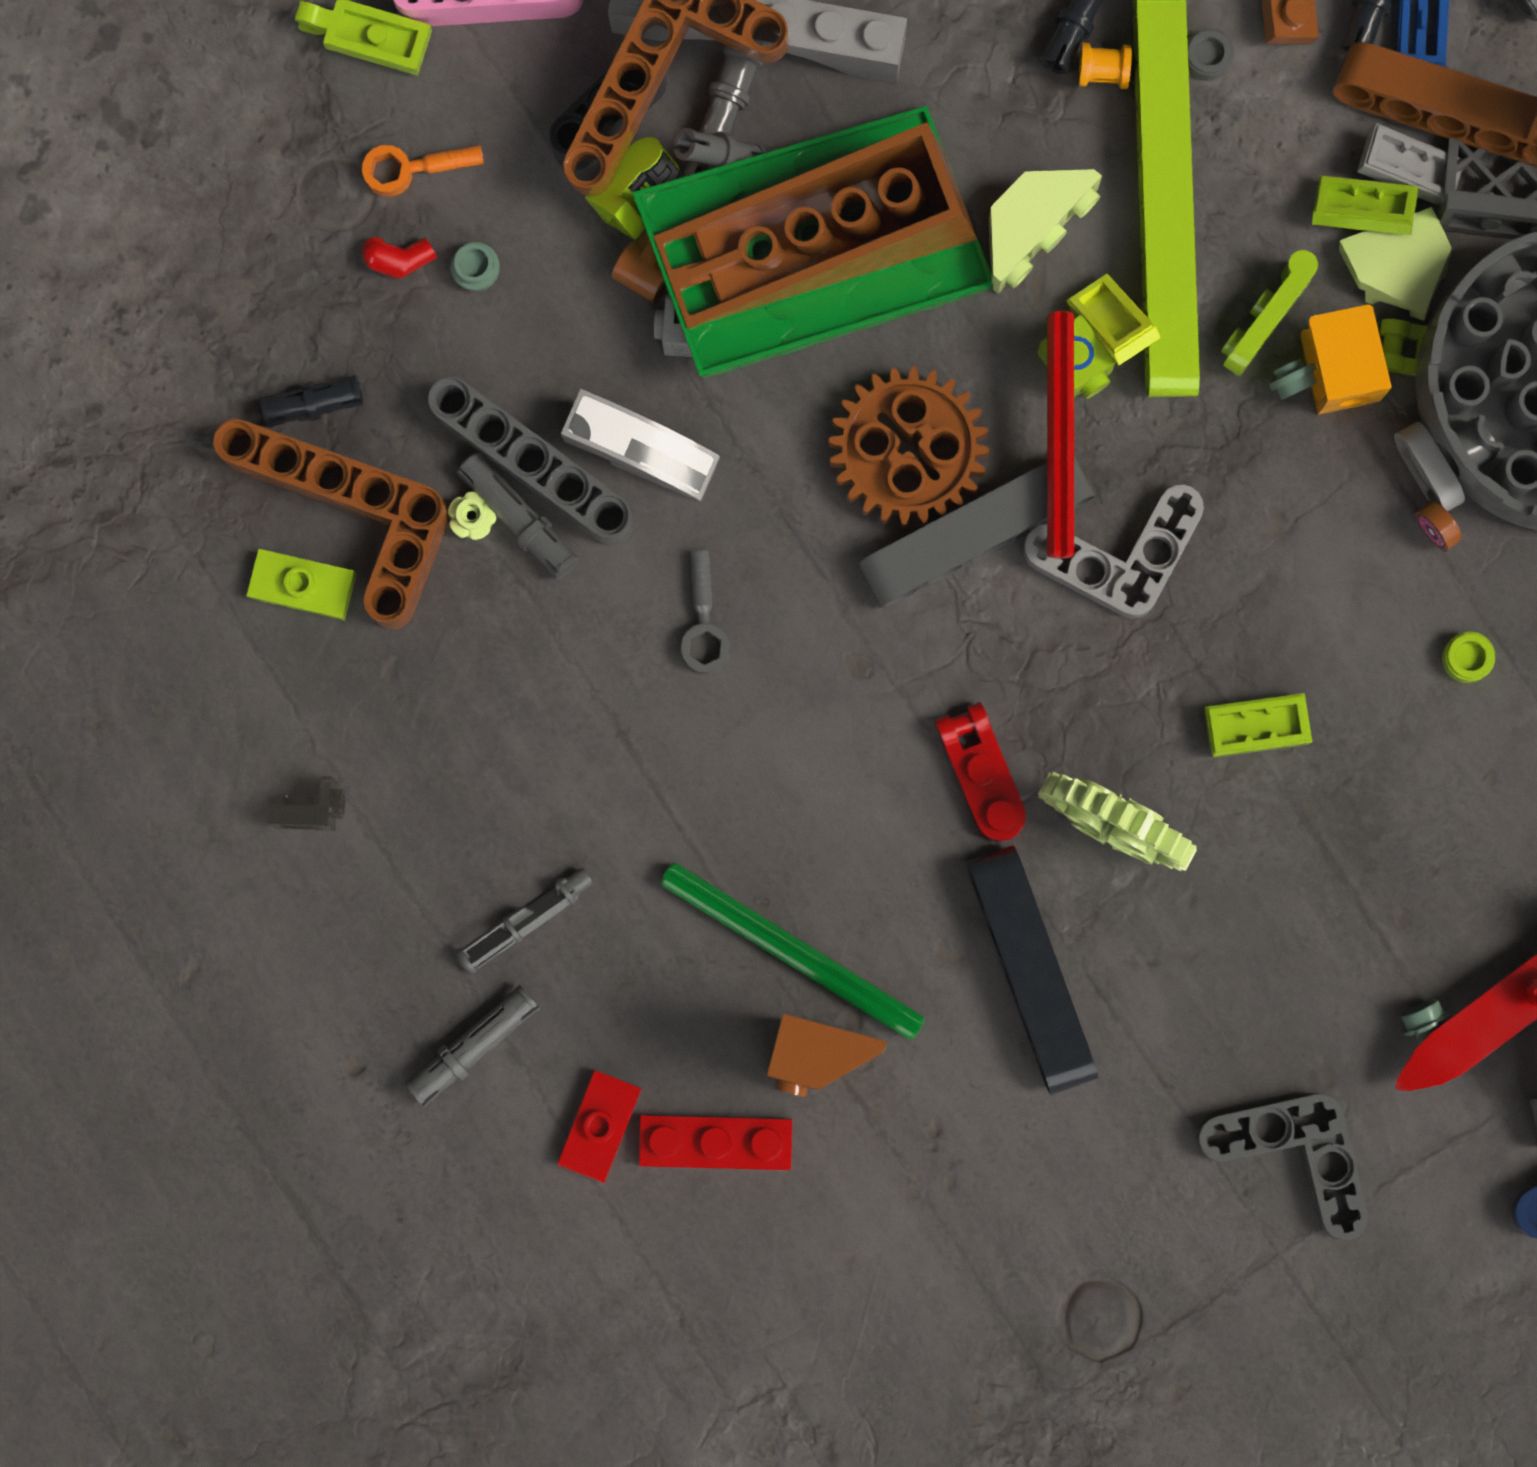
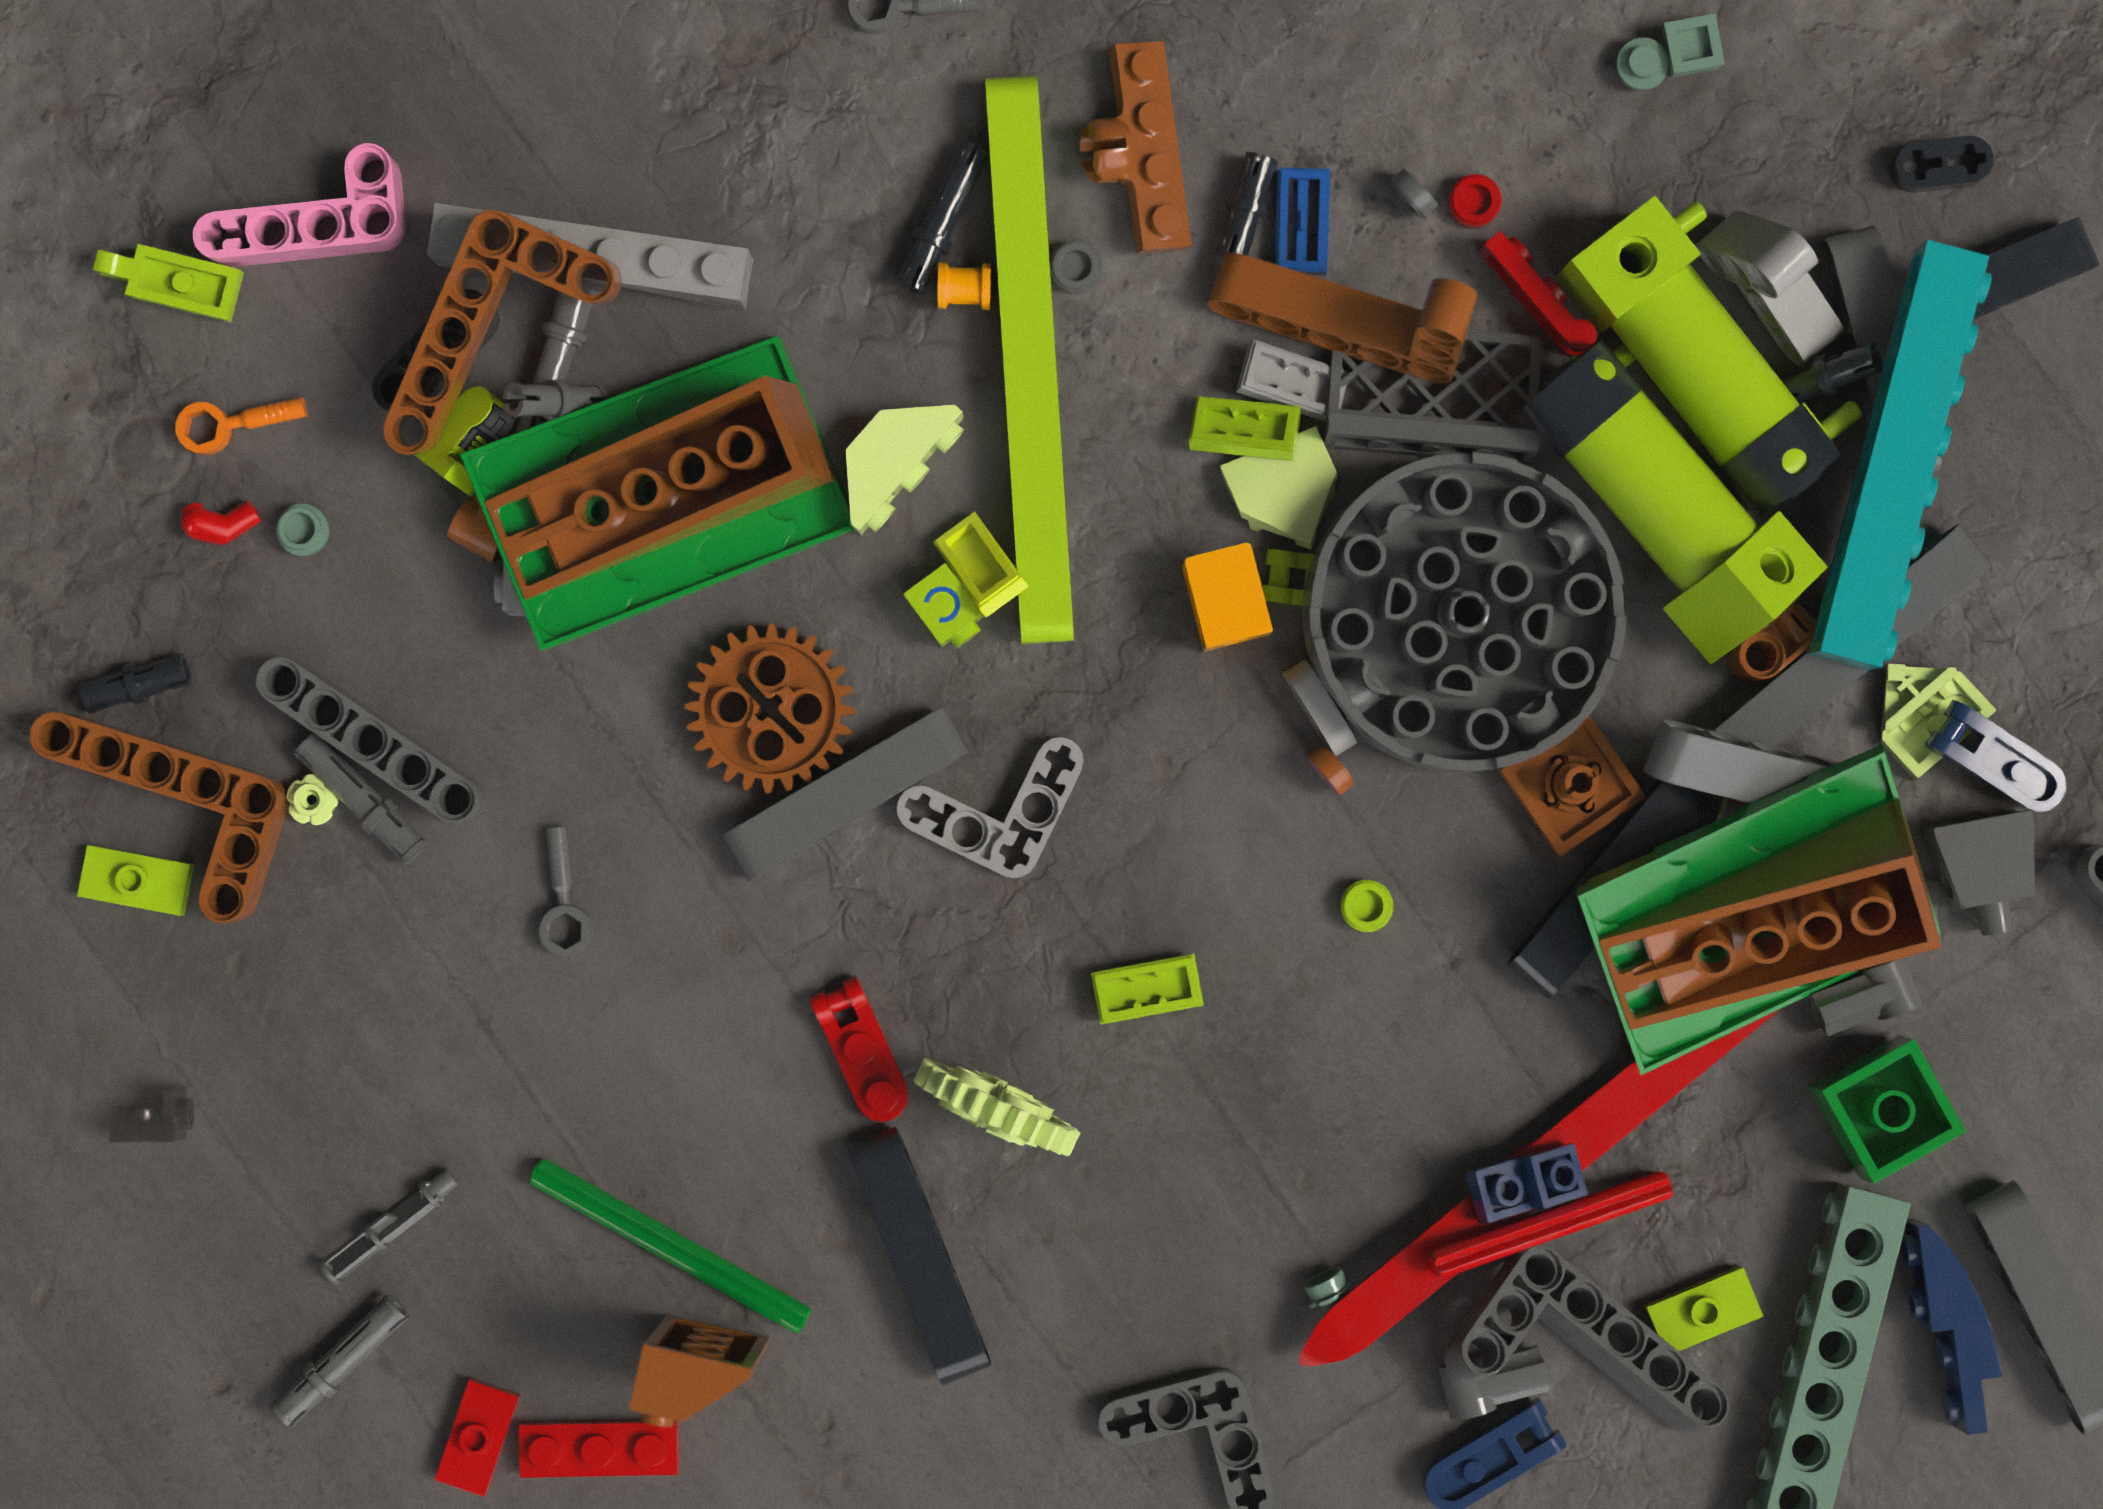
camera: 15 degrees left, 5 degrees up
(639, 445) = (485, 719): slope -> none
(1060, 434) = (926, 695): red axle -> none
(1270, 311) = (1147, 547): lime plate -> none
(1293, 378) = (1174, 618): sand green plate -> none

